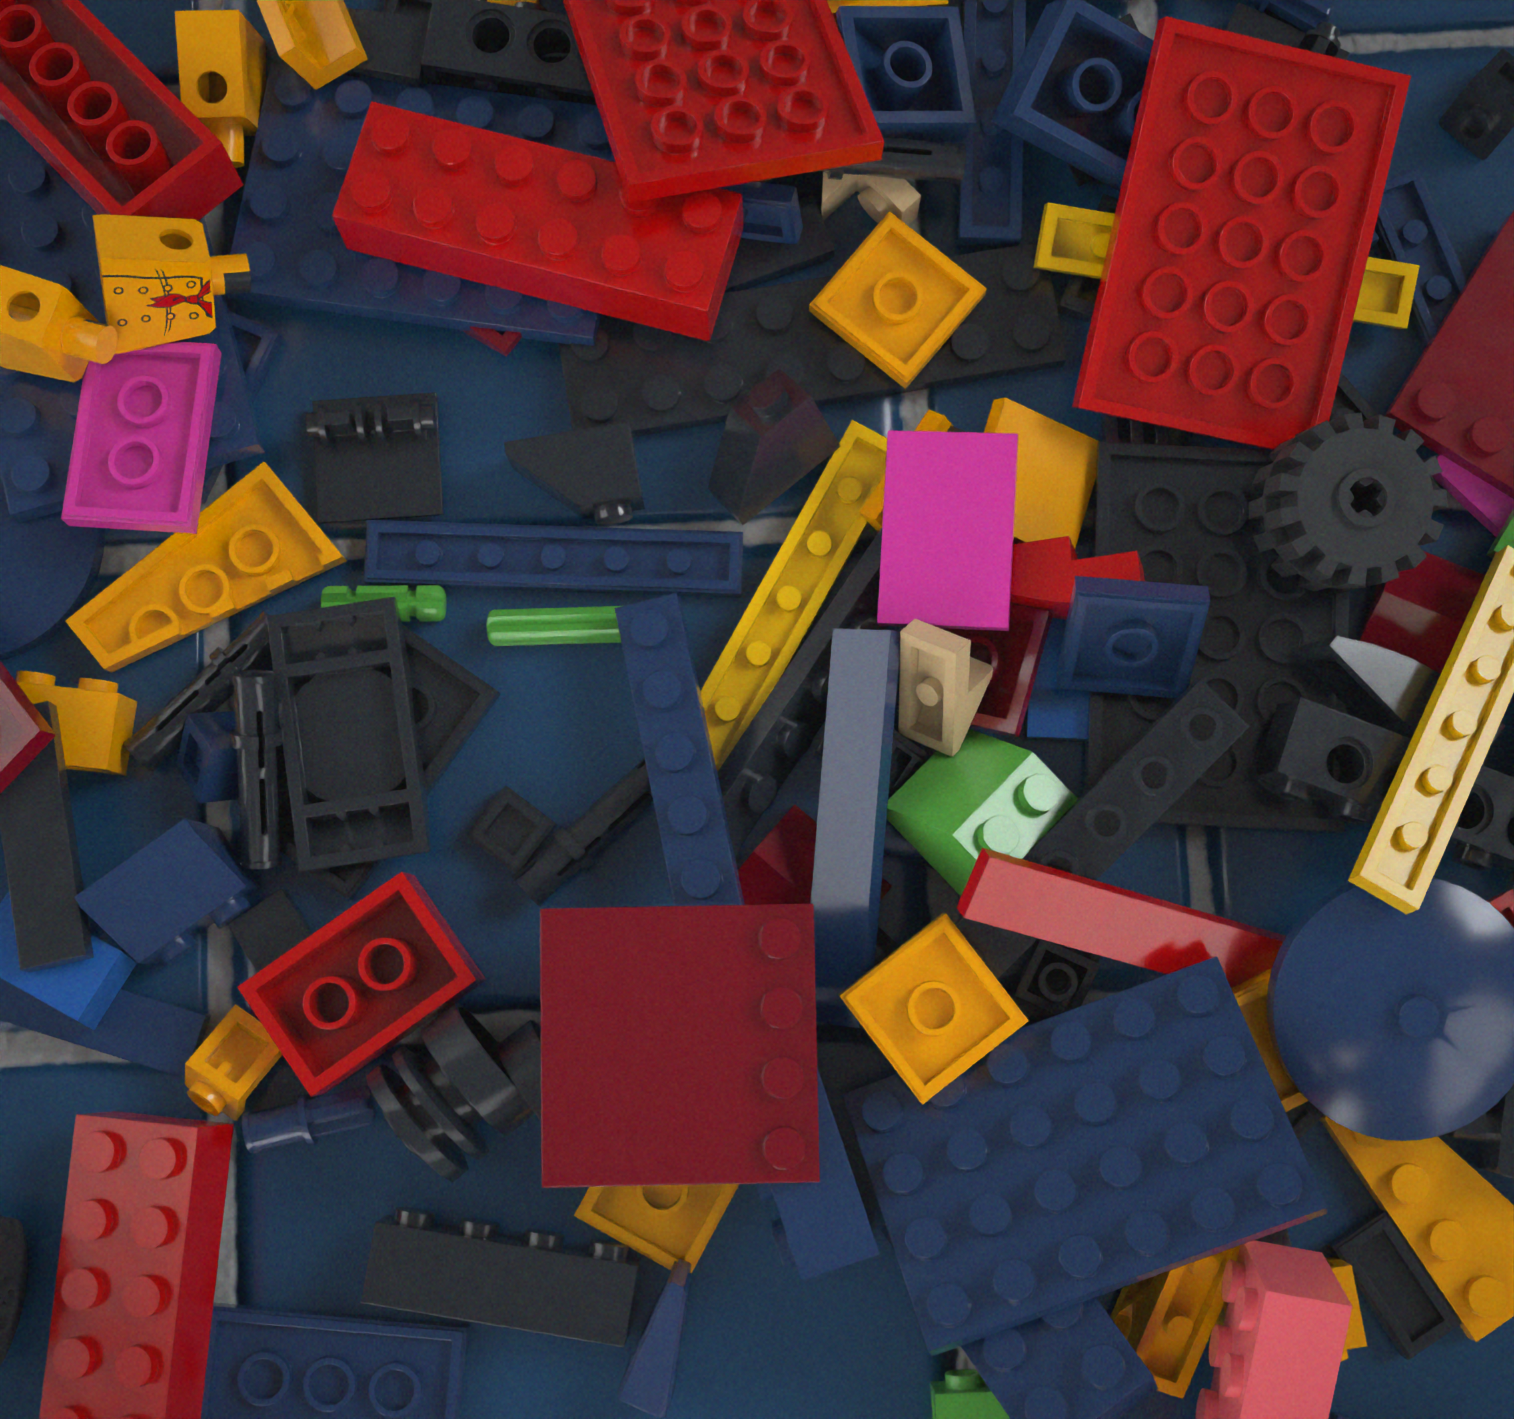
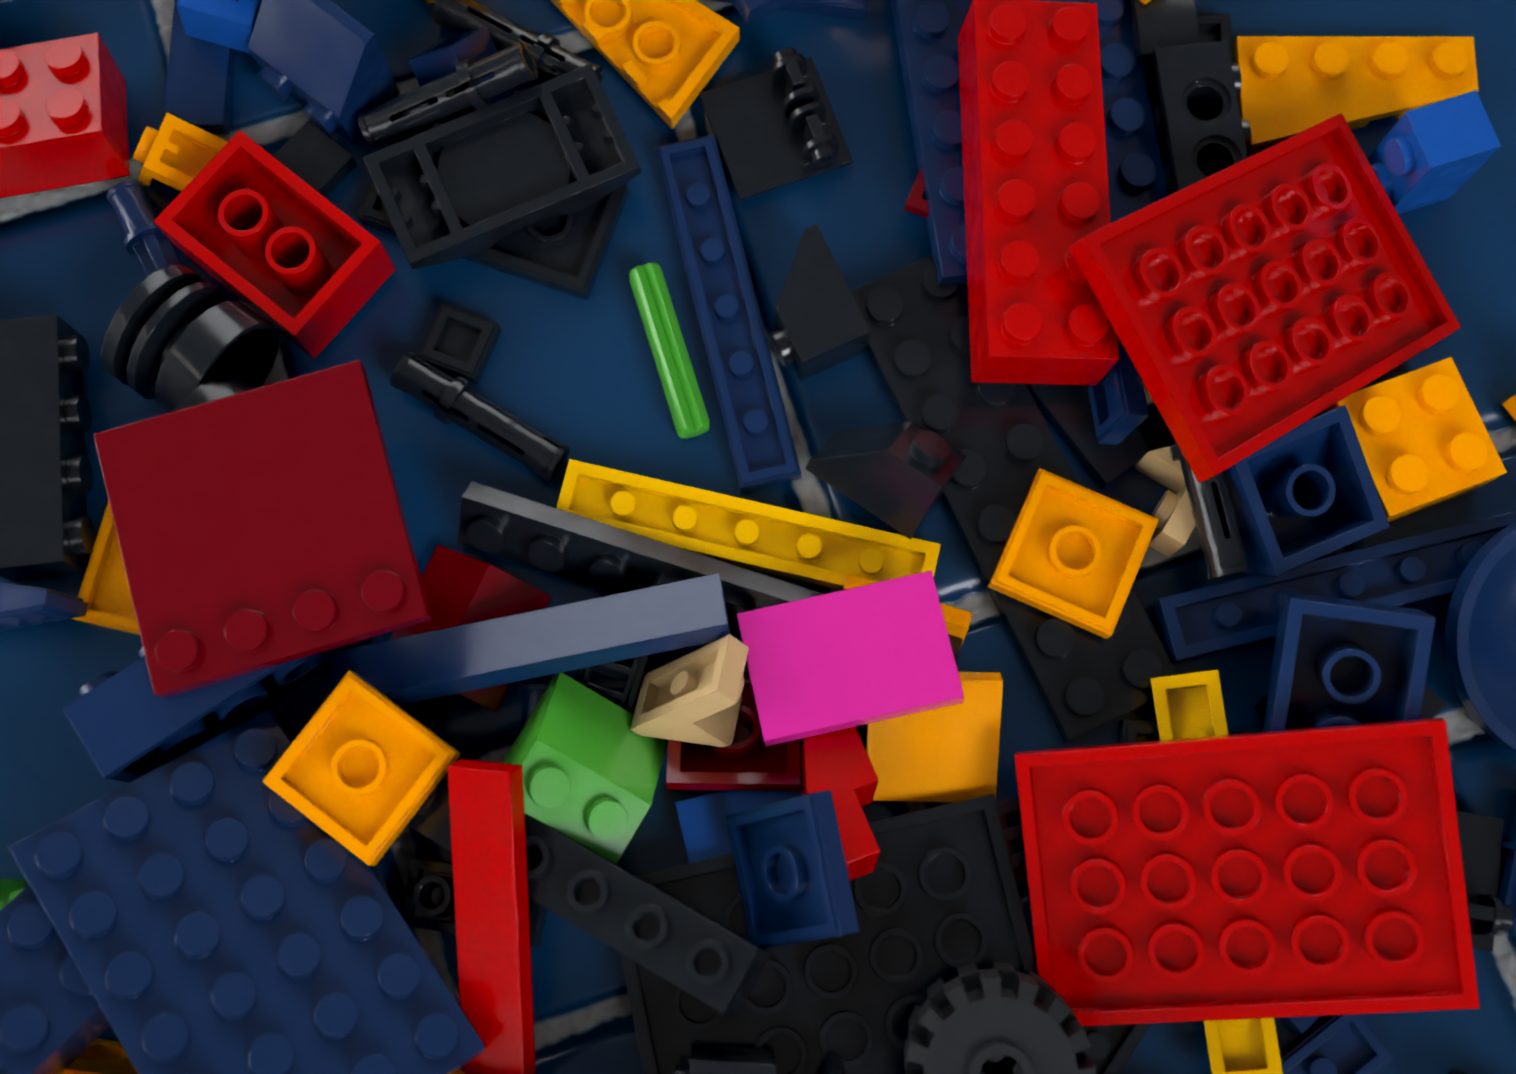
camera: 70 degrees right, 5 degrees down
(425, 603) = (646, 188): bright green axle -> none
(678, 753) = (555, 466): dark blue plate -> none

